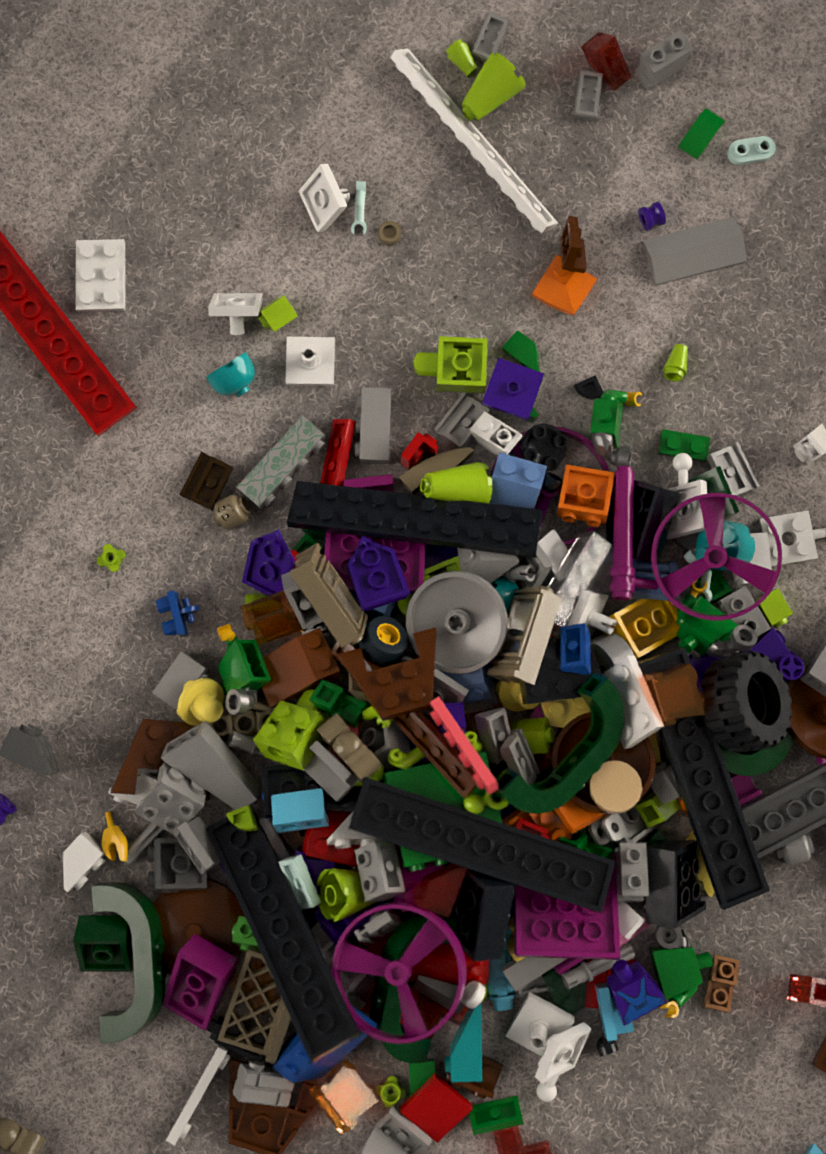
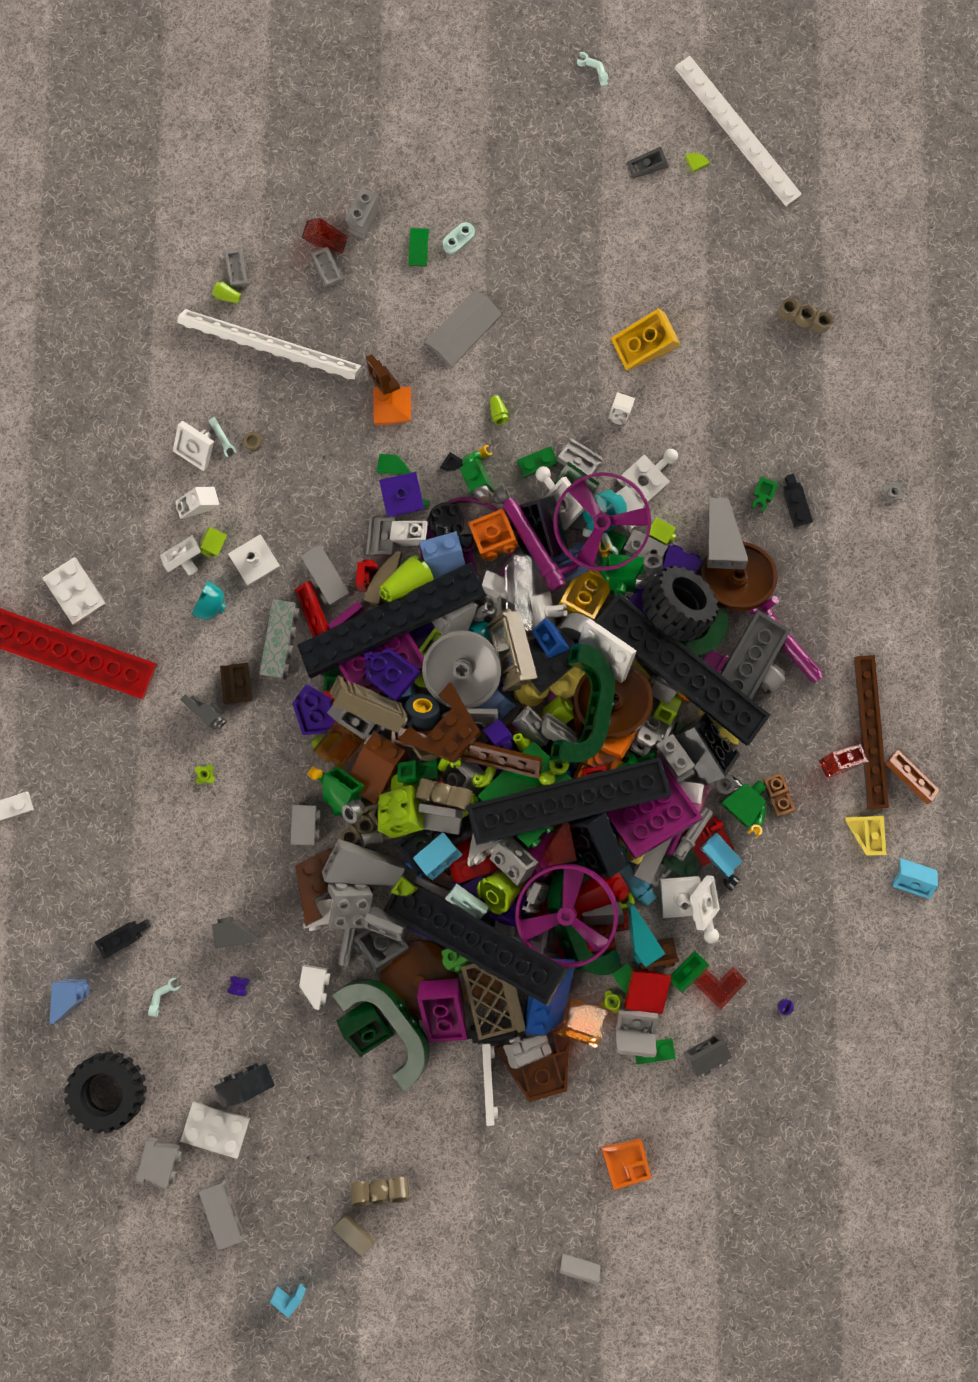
camera: 35 degrees left, 0 degrees up
(114, 838) = (325, 955): yellow hand -> none
(154, 495) = (208, 713): none -> dark grey plate
(172, 603) = (278, 790): blue hips -> none
(201, 701) = (327, 829): light yellow plate -> none
(231, 512) = (266, 693): dark tan head -> none
(289, 261) = (197, 501): none -> white slope
(457, 364) = (354, 501): lime brick -> none
(468, 755) = (523, 748): coral plate -> none
(473, 994) = (624, 901): white tile -> none
(492, 87) = (259, 302): lime cone -> none
(615, 787) = (631, 710): tan tile -> none
(633, 991) = (725, 834): dark purple torso -> none
(652, 216) = (420, 322): dark purple wheel -> none
(676, 693) = (631, 625): clear orange hips -> none
(794, 667) = (697, 561): dark purple wheel -> none
(796, 1093) = (869, 833): none -> light yellow wing

